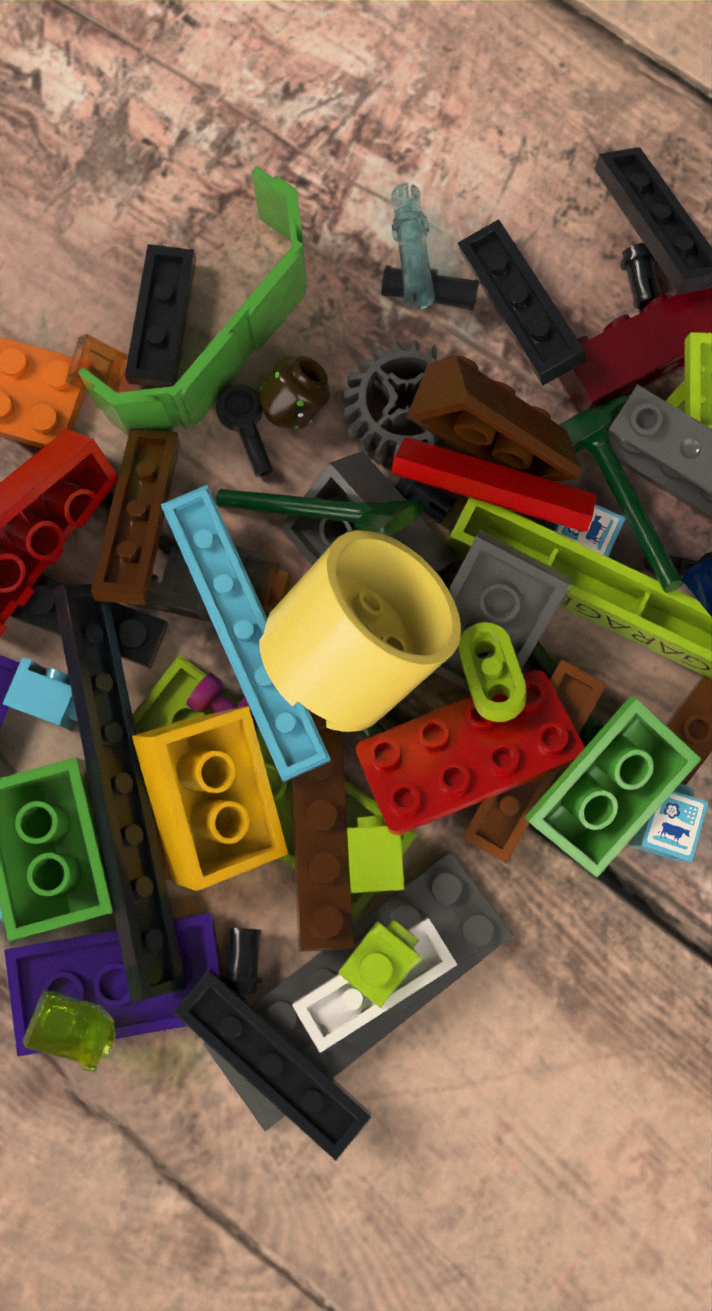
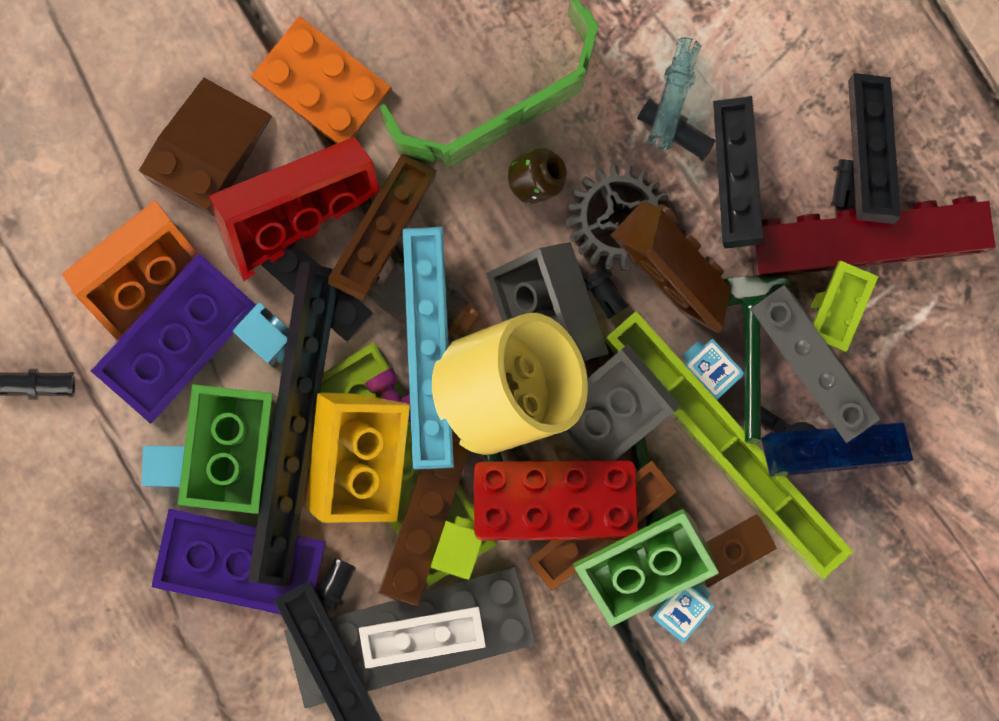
camera: 20 degrees right, 5 degrees up
(70, 1030) = (198, 583): clear neon green bracket -> none
(98, 359) = (396, 93): clear orange tile -> none
(160, 316) = (459, 71): black plate -> none
(241, 411) = (491, 171): black plate -> none
(367, 516) = (555, 307): dark green piece -> none
(381, 961) = (433, 622): lime bracket -> none
(494, 484) = (655, 311): red tile -> none
(494, 674) = (594, 453): lime plate -> none

